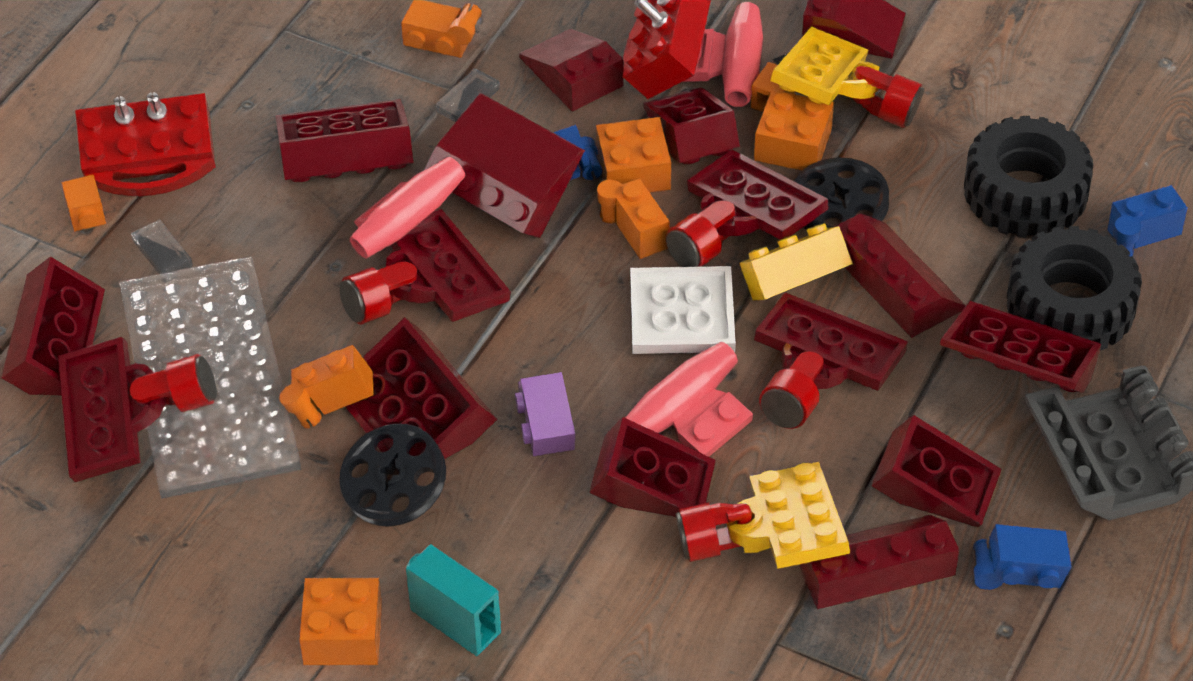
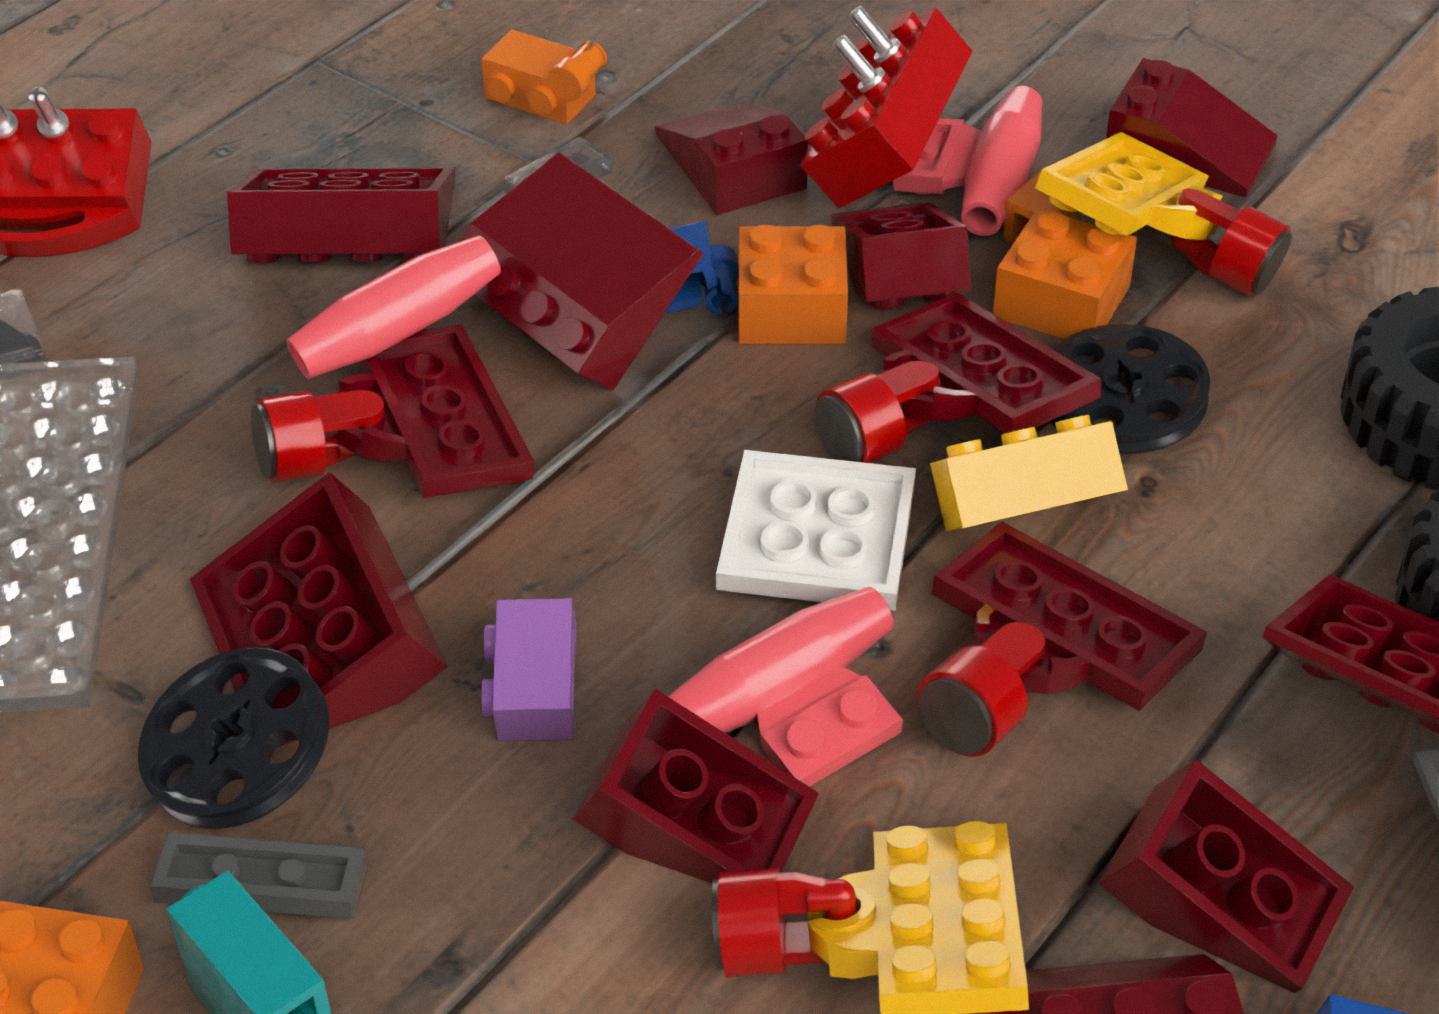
camera: 10 degrees right, 5 degrees down
(327, 385) = (171, 569): orange hinge -> none
(459, 542) = (274, 873): none -> dark grey plate
(635, 215) = (774, 367): orange hinge -> none
(897, 276) = (1203, 522): dark red slope -> none

